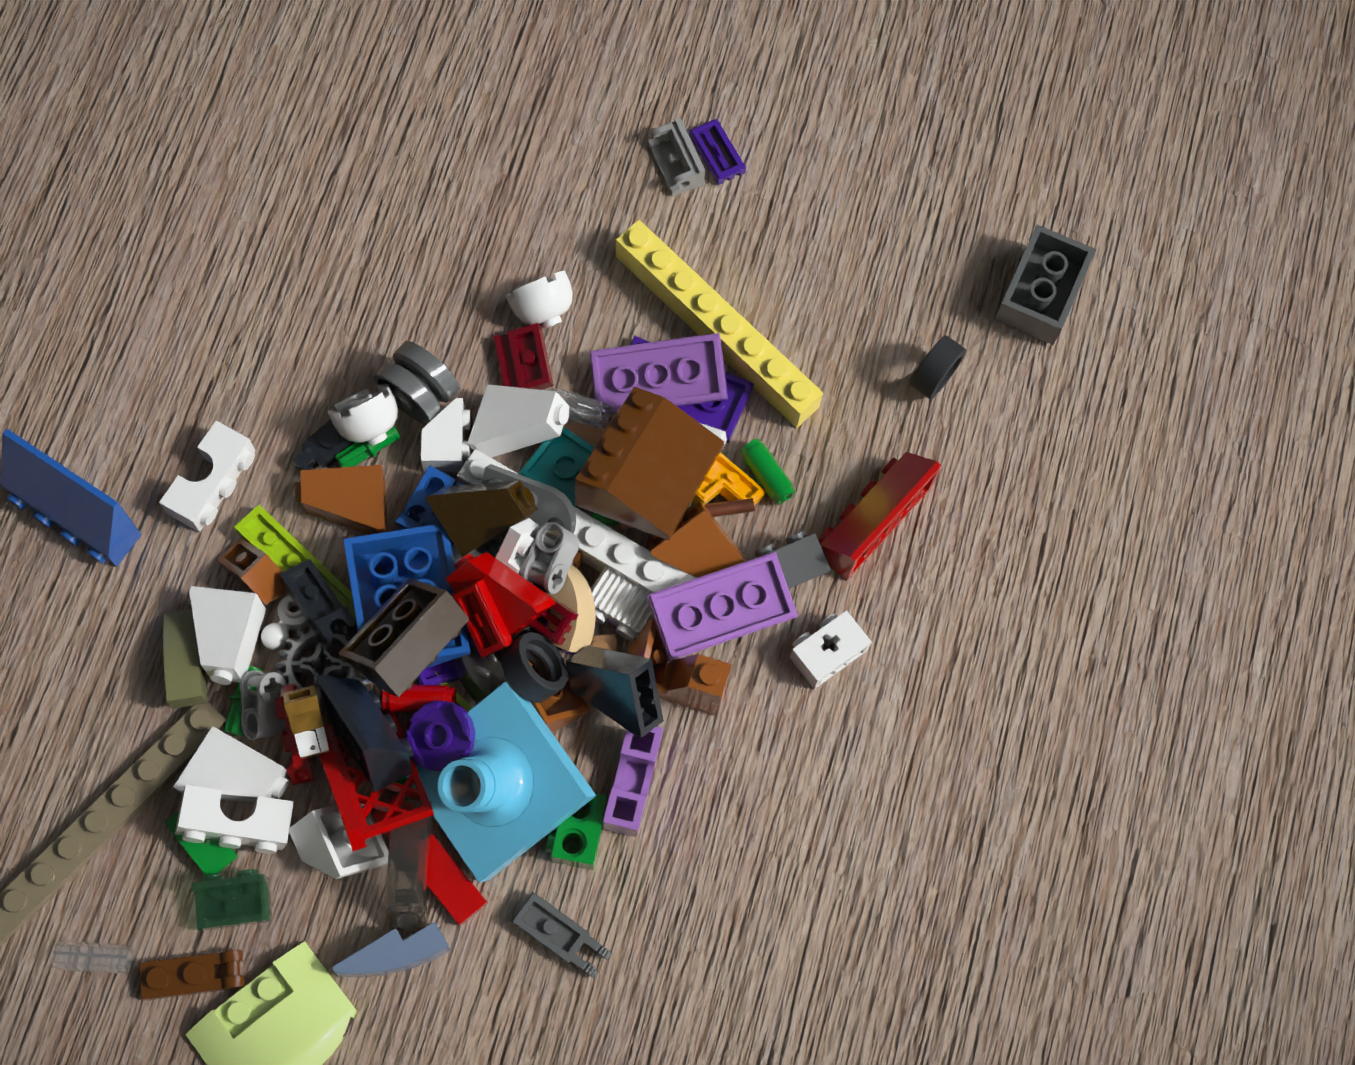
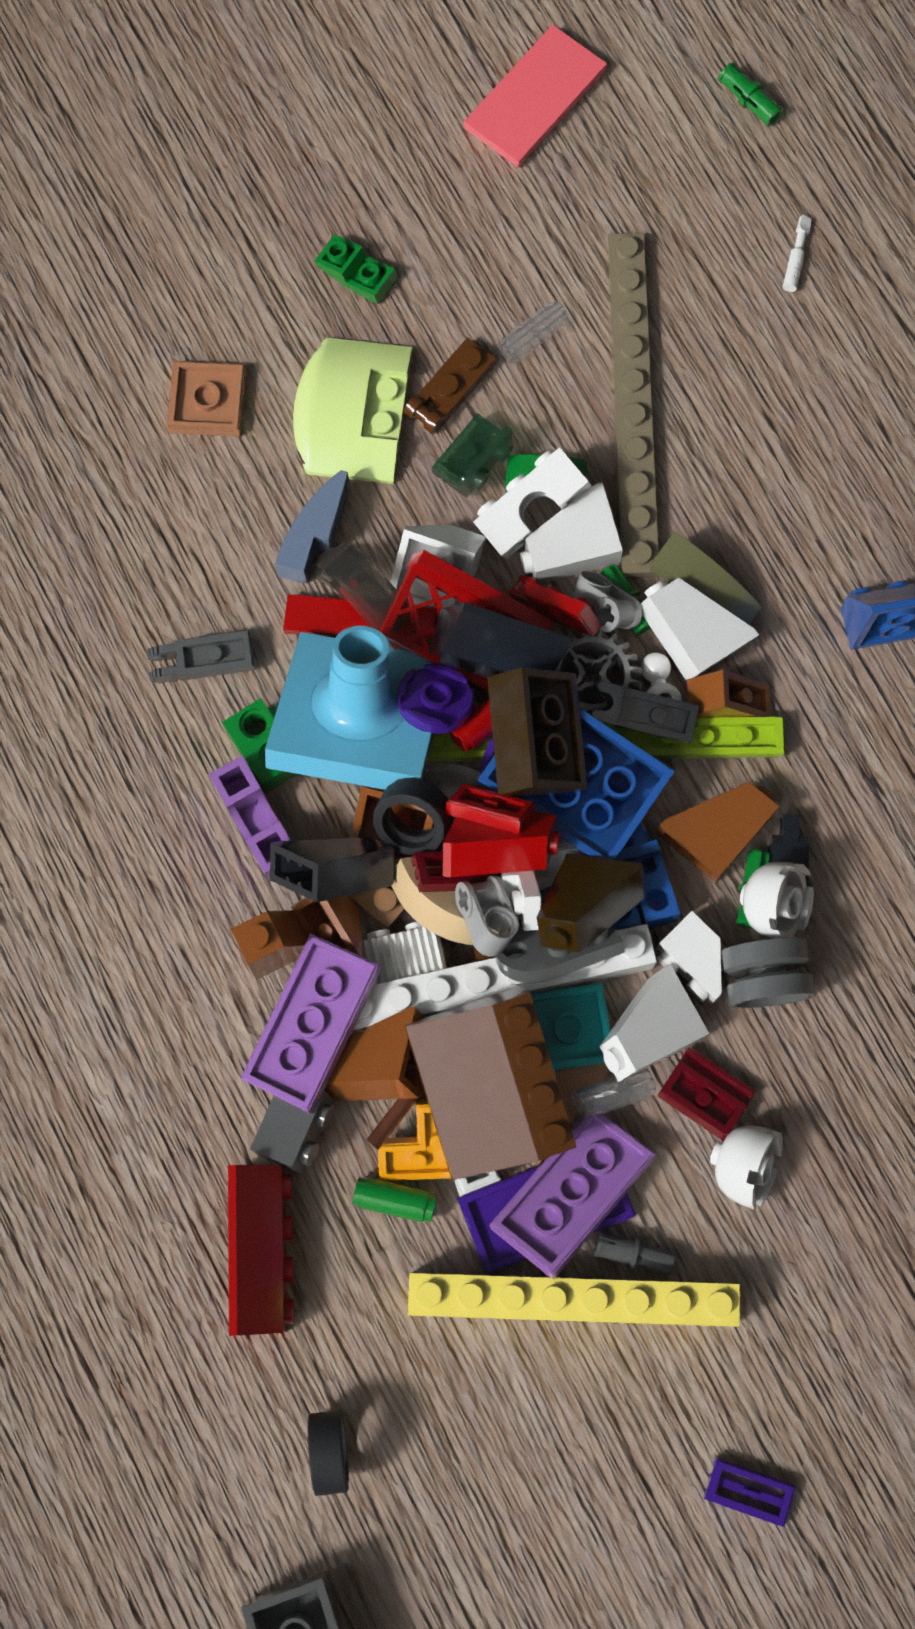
camera: 145 degrees right, 5 degrees up
(198, 501) = (853, 769): white arch -> none
(306, 721) = (544, 603): pearl gold leg -> none
(655, 315) = (634, 1253): none -> dark grey axle
(676, 158) = (778, 1440): light grey hinge -> none
(821, 665) = (187, 1063): white brick -> none

